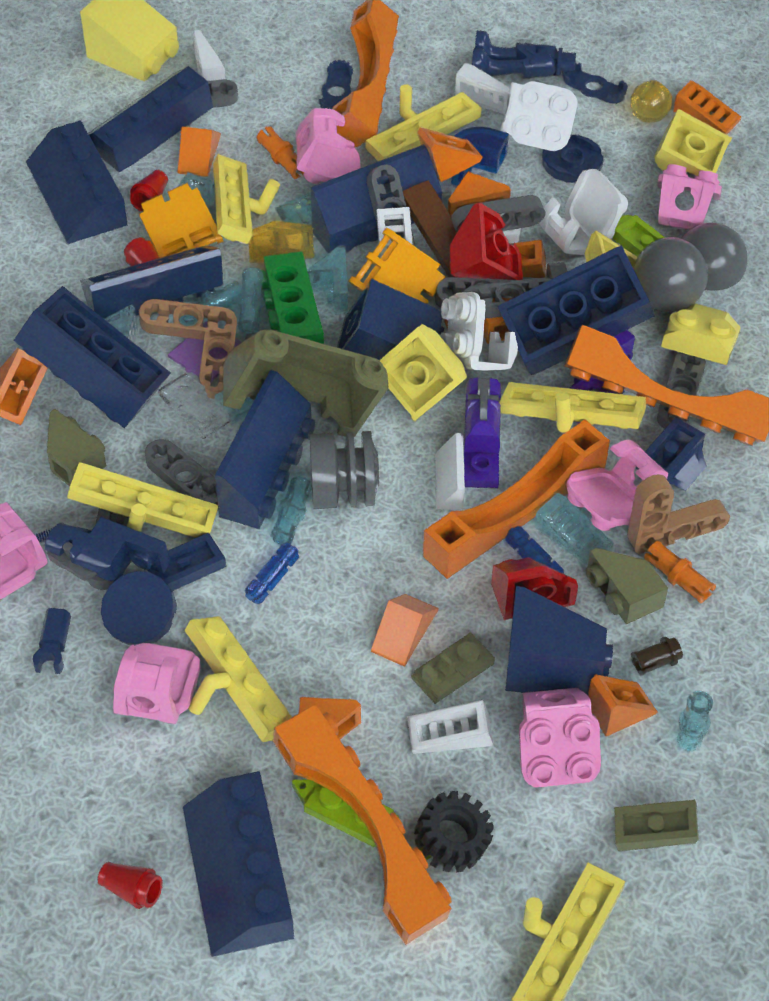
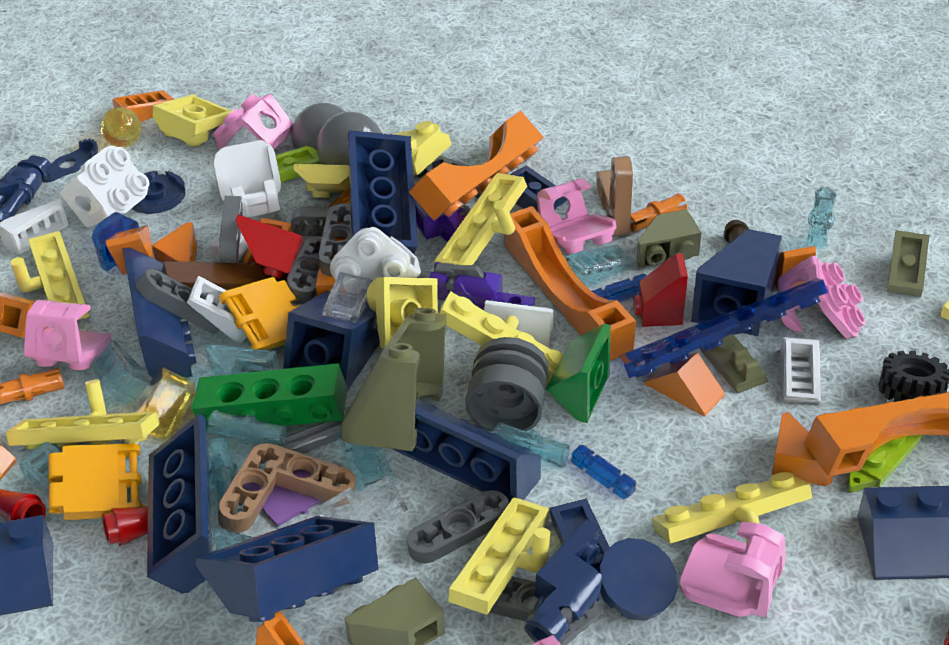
camera: 75 degrees left, 10 degrees down
(377, 532) = (583, 373): none -> green slope
(402, 456) = (483, 327): none -> light yellow plate
(408, 309) = (347, 298): none -> clear slope
(445, 616) = (711, 332): none -> clear blue wing

